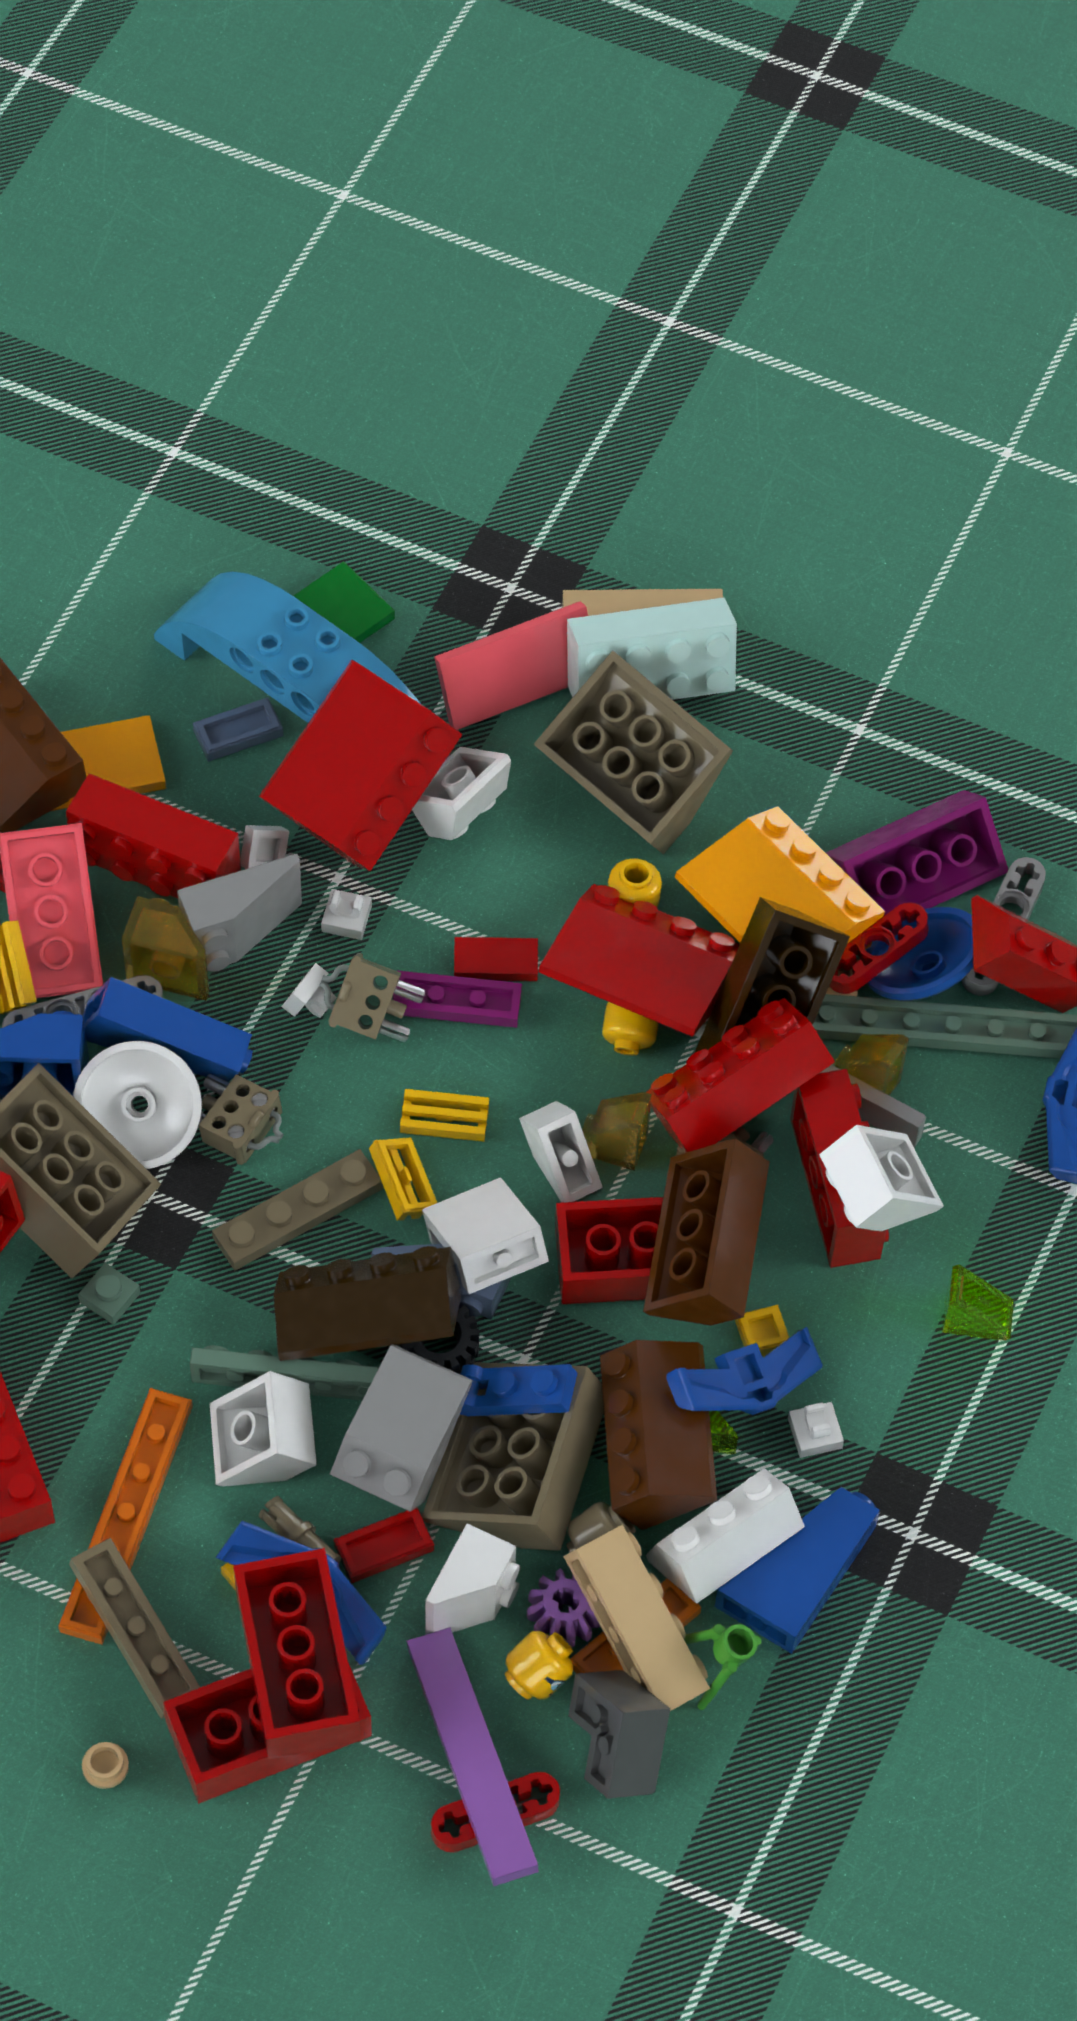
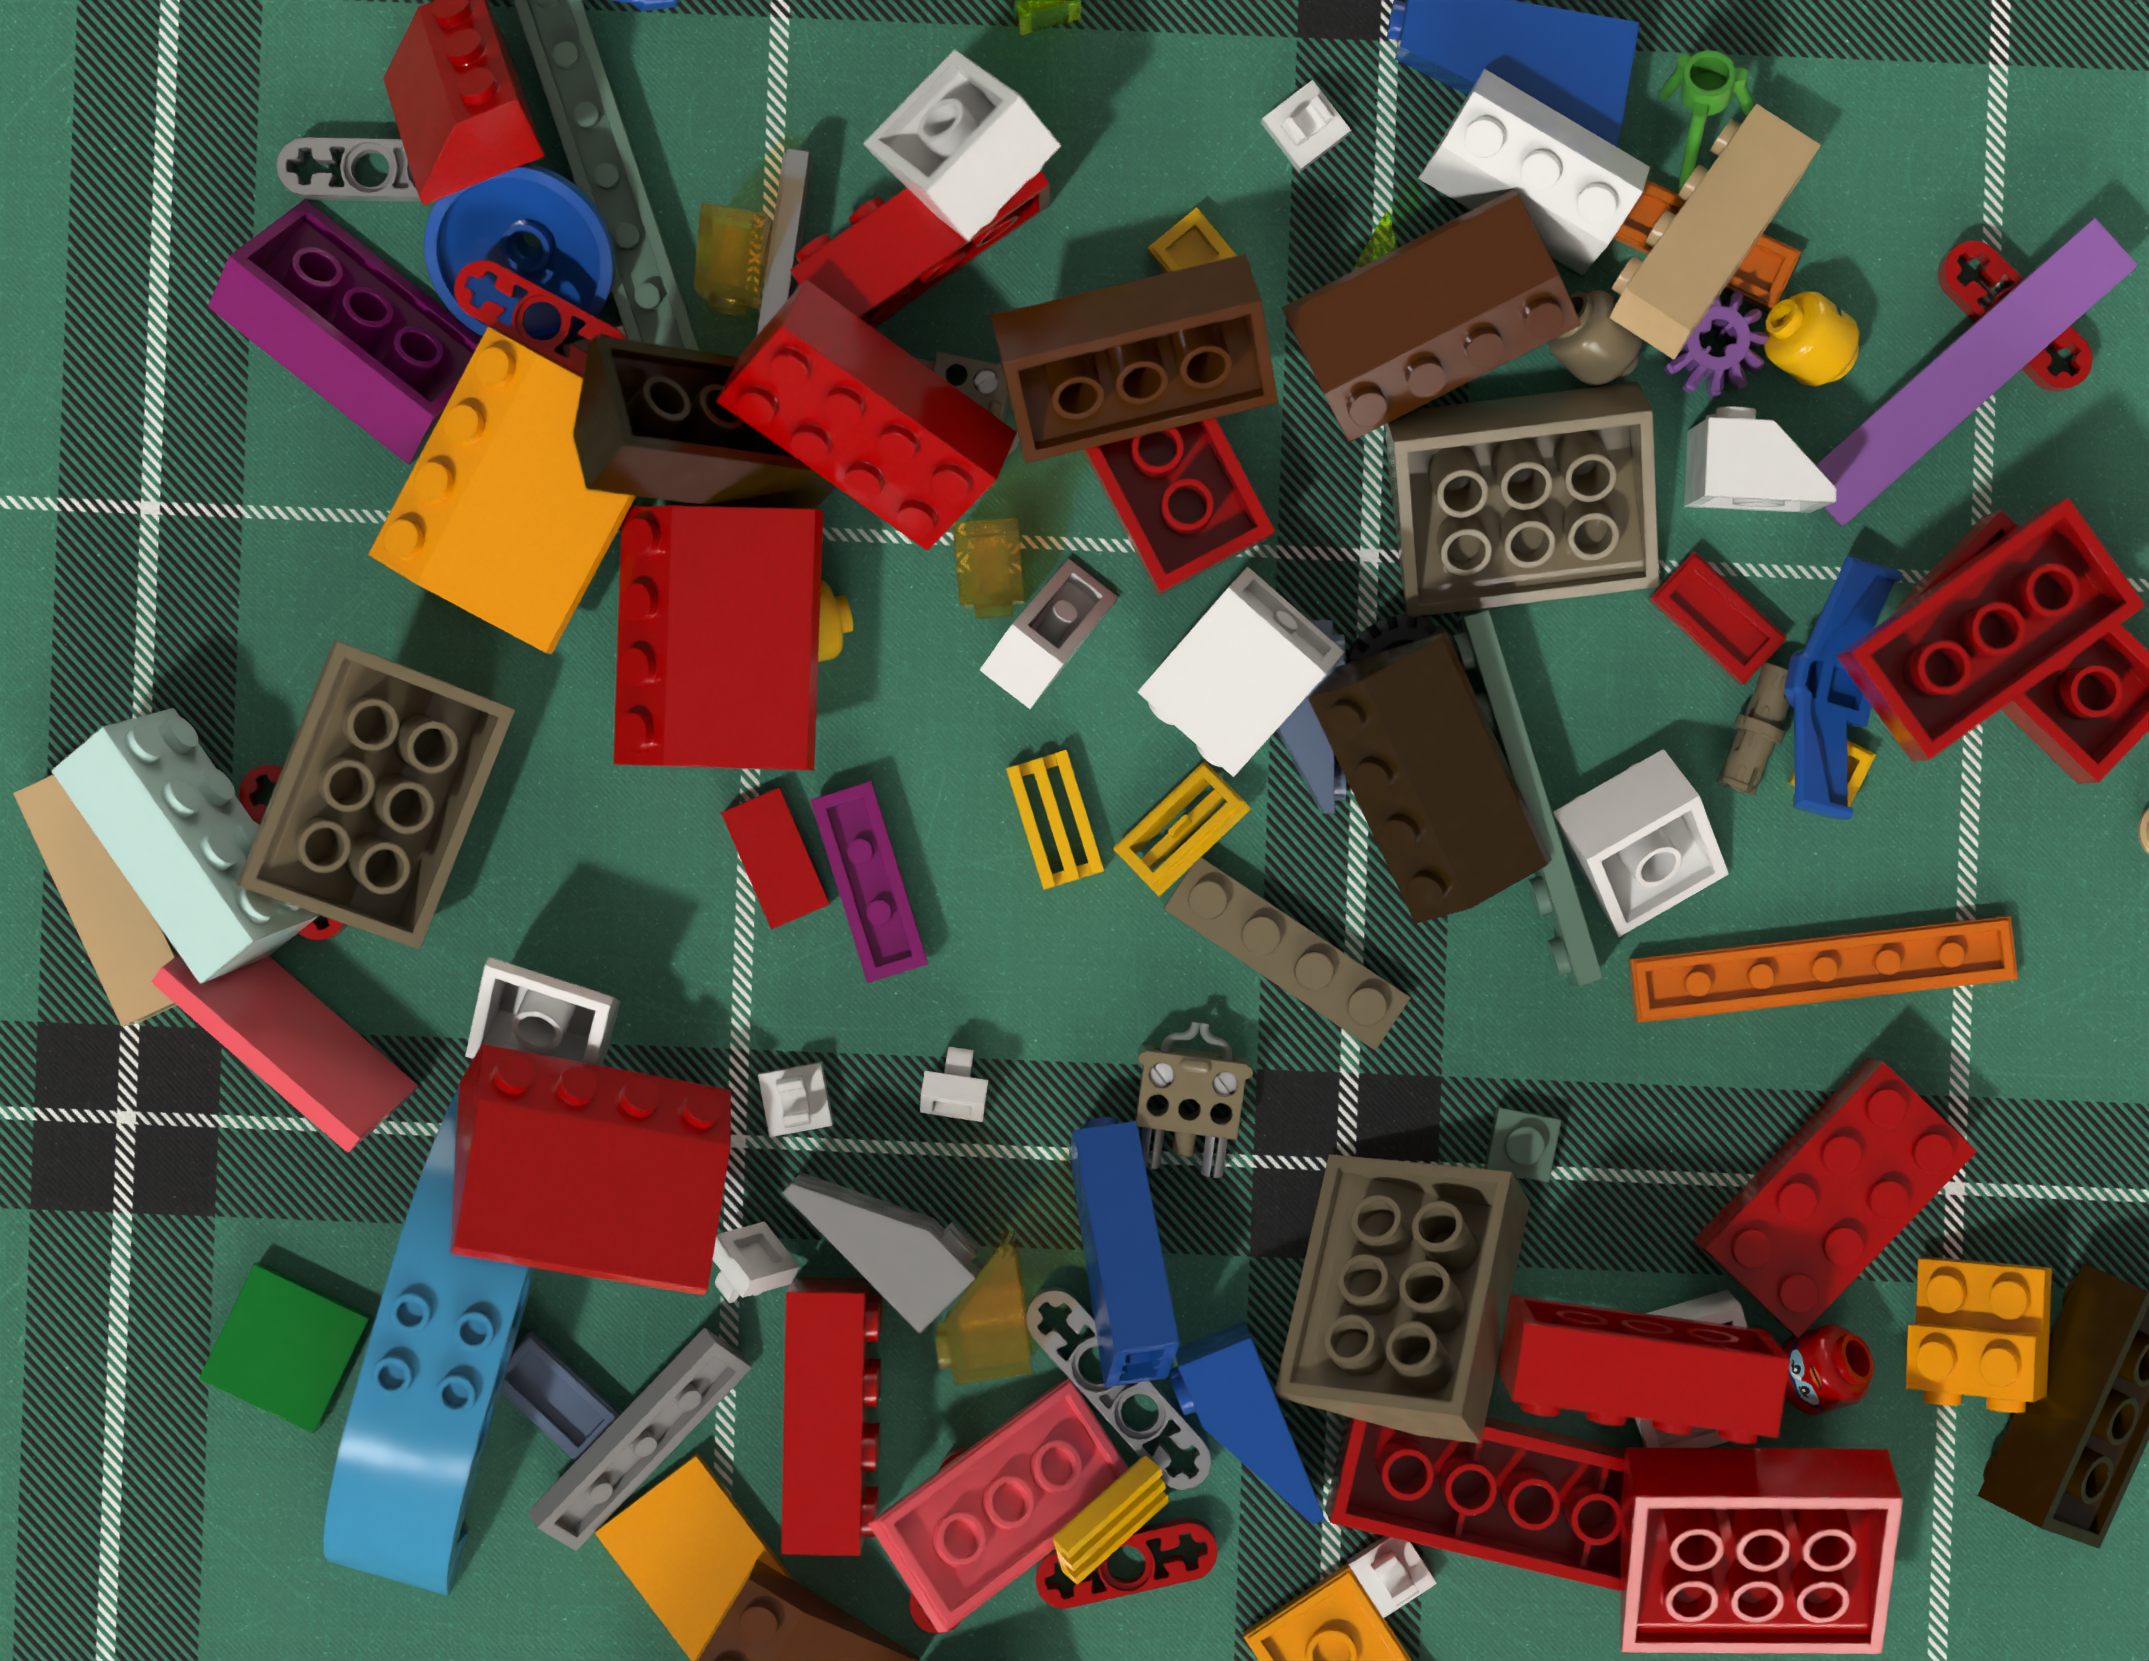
camera: 105 degrees left, 30 degrees up
(133, 1624) = (1988, 876): dark tan plate -> none
(160, 1076) = (1268, 1210): white dish -> none
(190, 753) = (639, 1439): none -> light grey plate
(354, 994) = (935, 998): dark tan piece -> none
(402, 1428) = (1583, 652): light grey slope -> none
(519, 1389) = (1453, 528): blue plate -> none
(625, 1732) = (1850, 195): dark grey panel -> none
(636, 881) = (585, 706): yellow head -> none
(746, 1378) = (1299, 227): blue plate -> none

